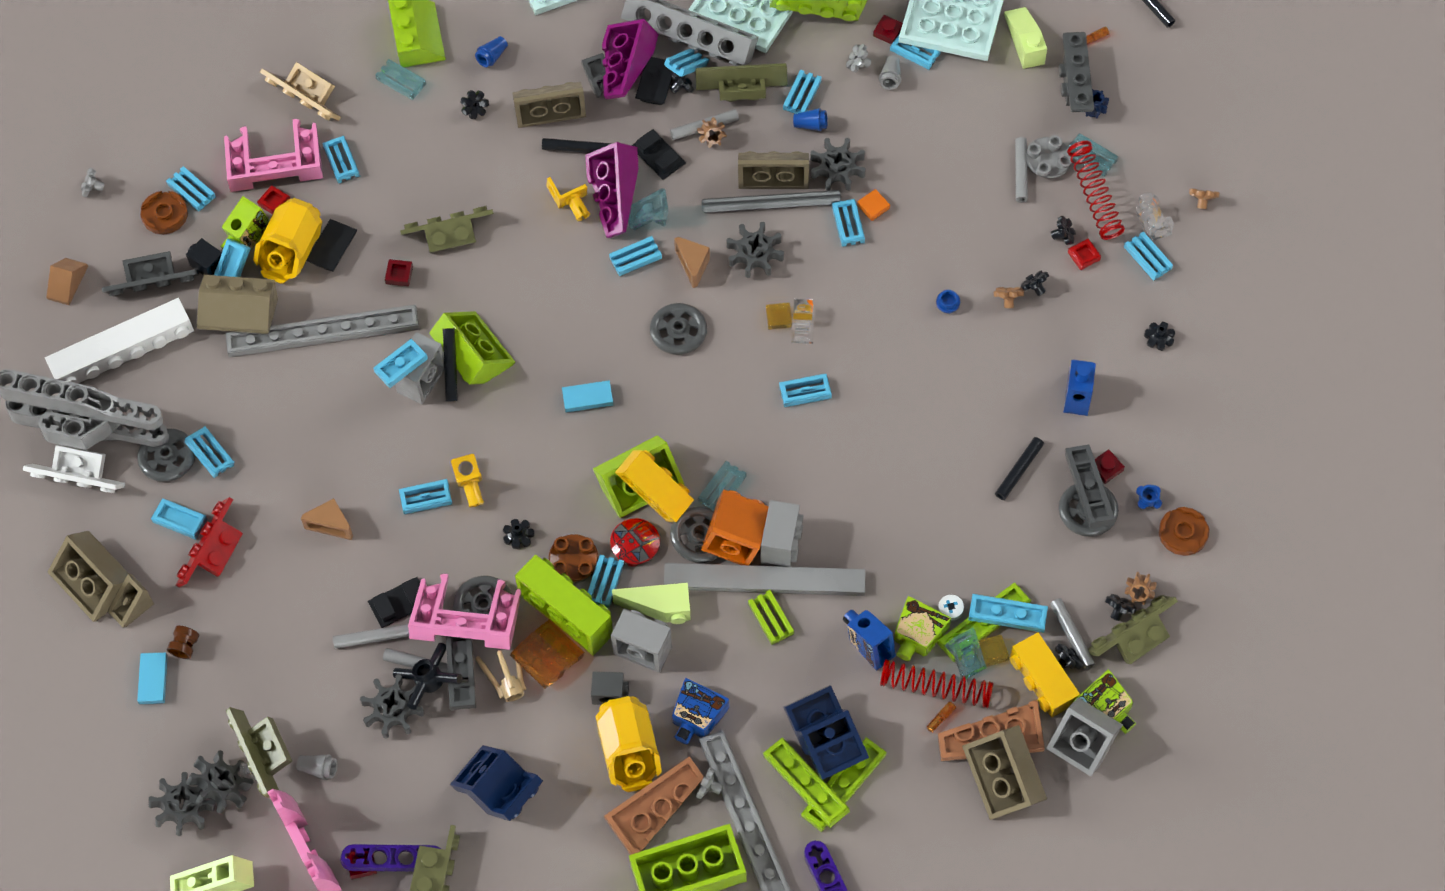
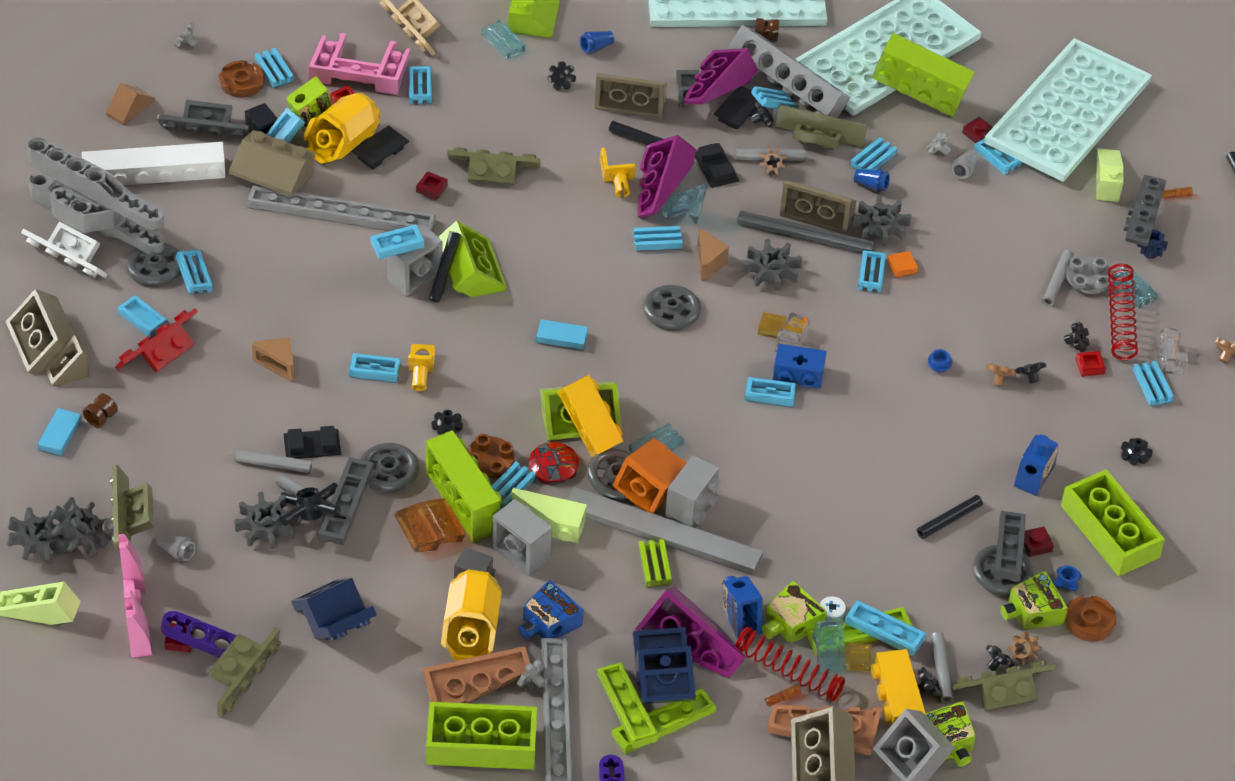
camera: 15 degrees right, 15 degrees down
(495, 629) = (390, 483): bright pink wedge -> none
(511, 687) = (383, 541): tan plant -> none
(830, 346) = (799, 365): none -> blue brick
(854, 690) = (707, 642): none -> magenta wedge
(1131, 536) = (1035, 603): none -> lime torso
(1170, 425) = (1112, 522): none -> lime brick

